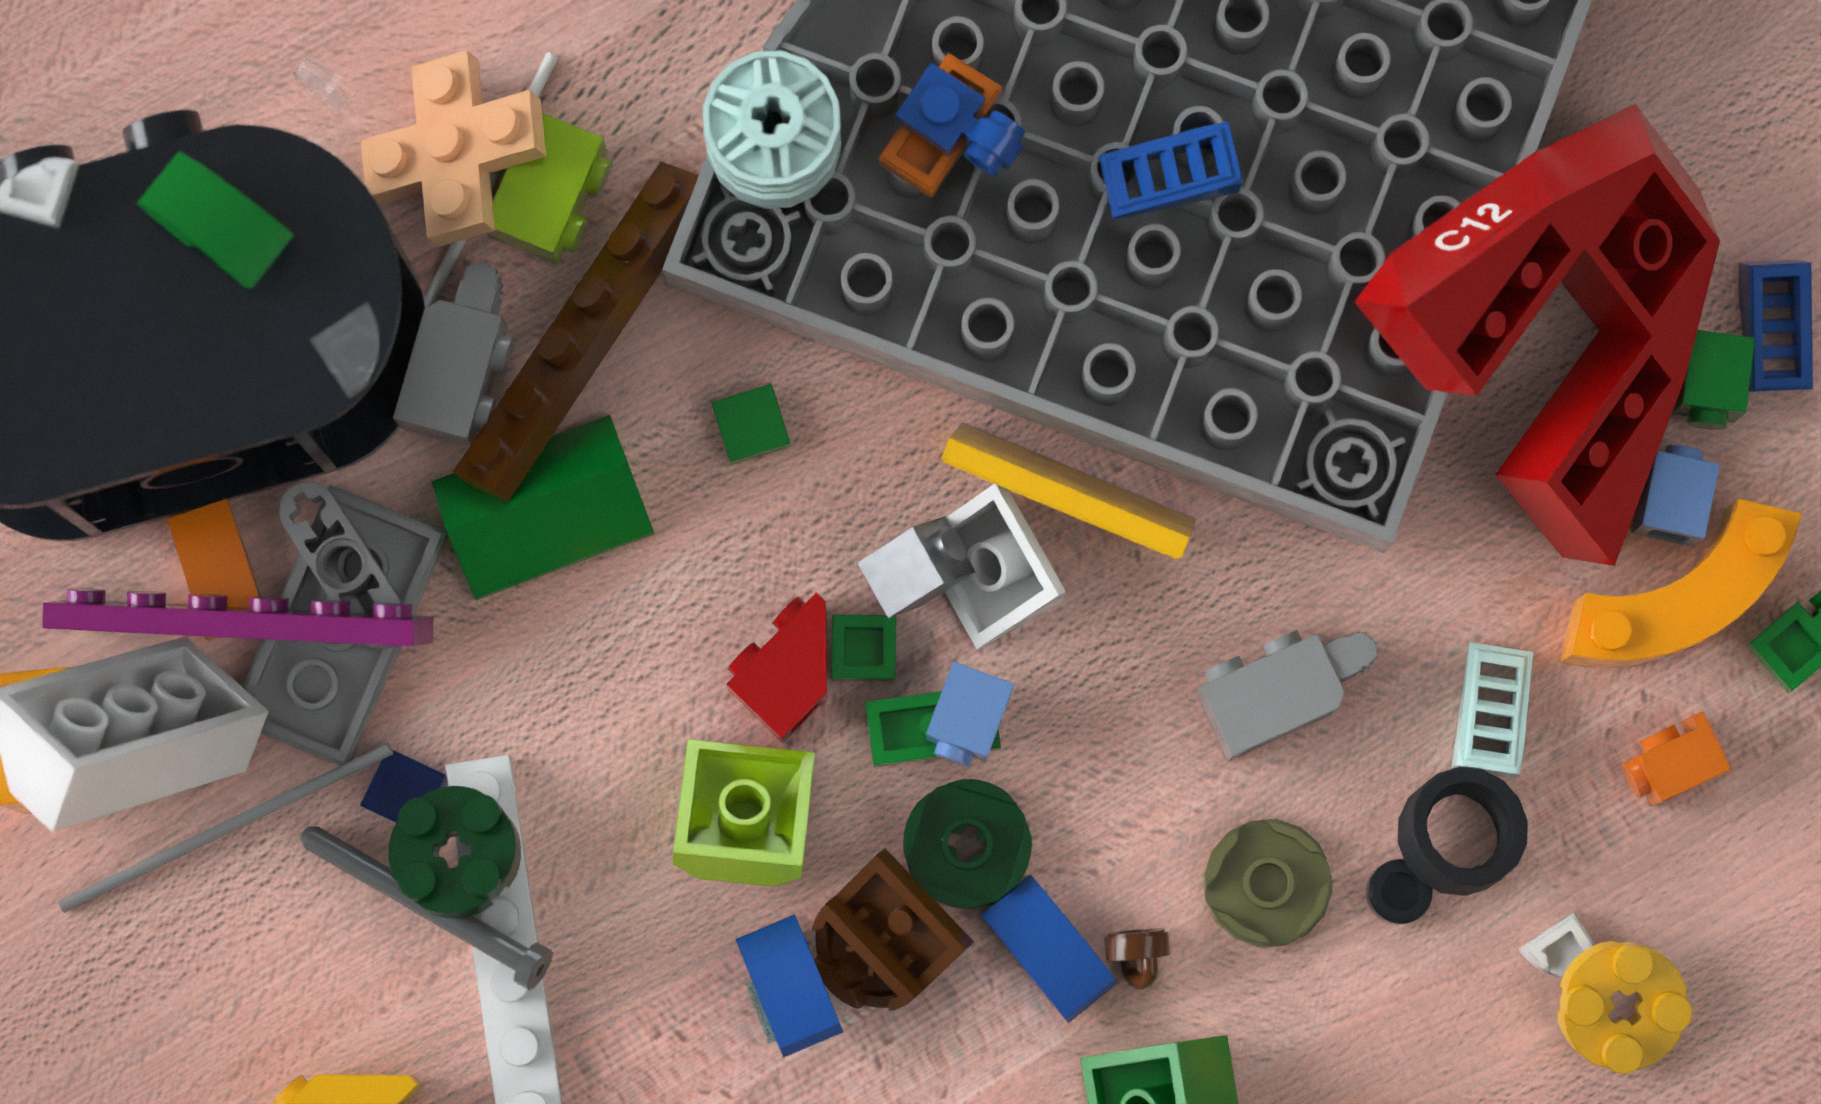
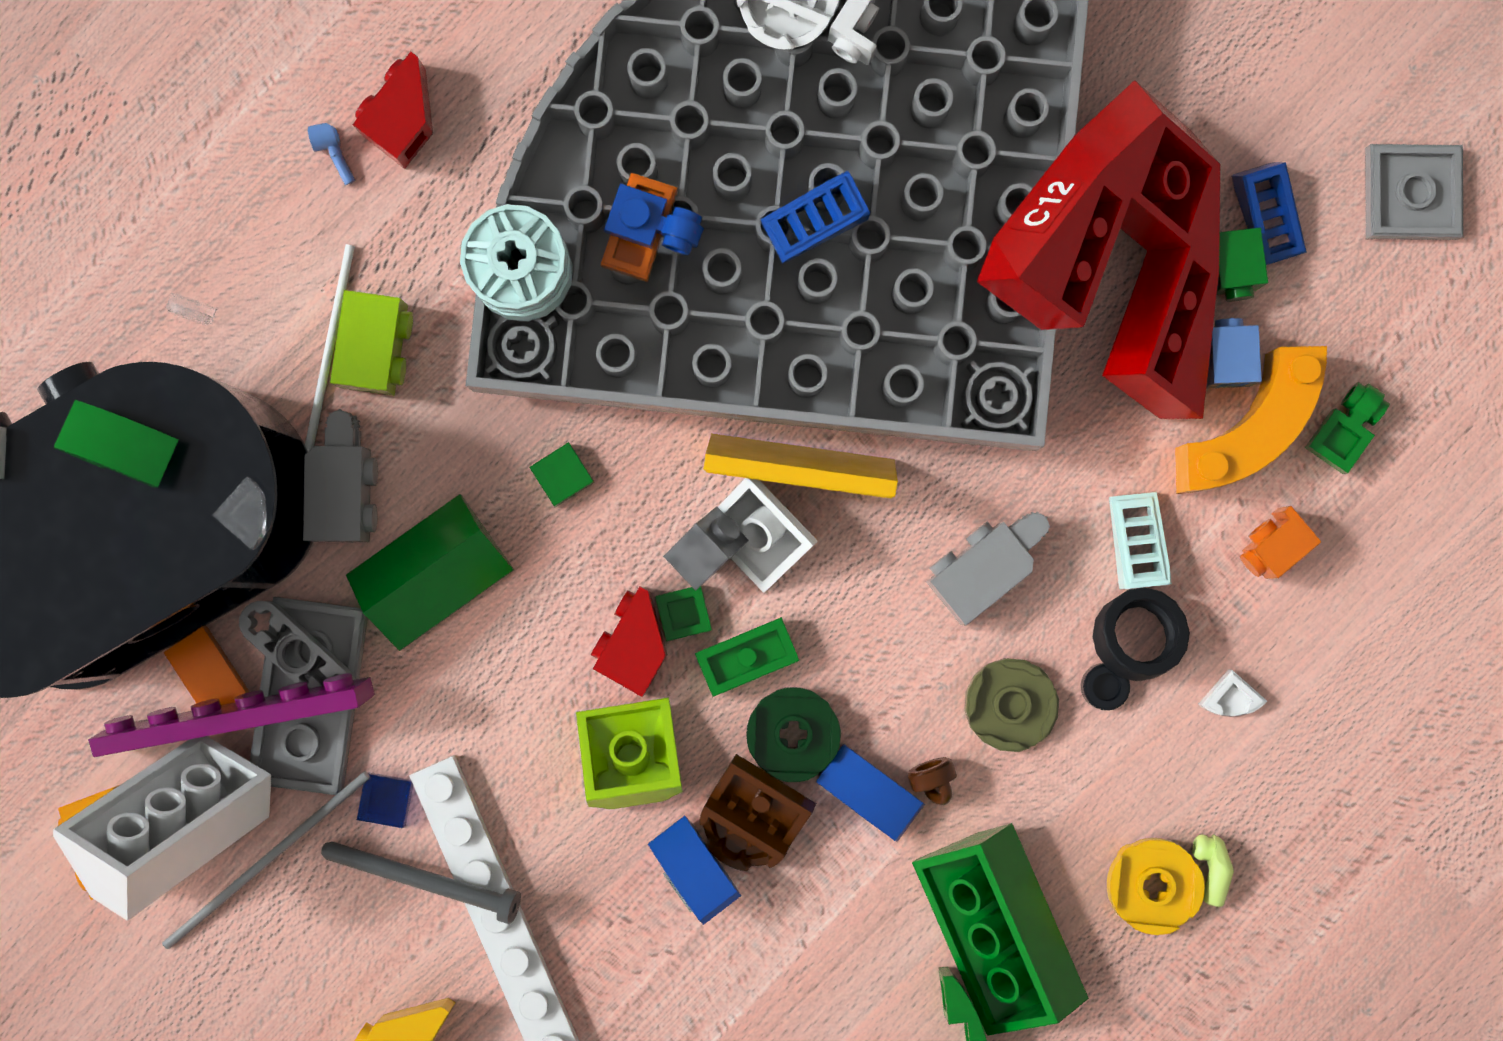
camera: 15 degrees left, 5 degrees up
(453, 148) = (295, 333): light nougat plate -> none
(480, 877) = (406, 827): dark green plate -> none
(578, 337) = (421, 447): reddish brown plate -> none
(968, 715) = (771, 647): medium blue brick -> none
(1659, 1009) = (1305, 740): yellow plate -> none

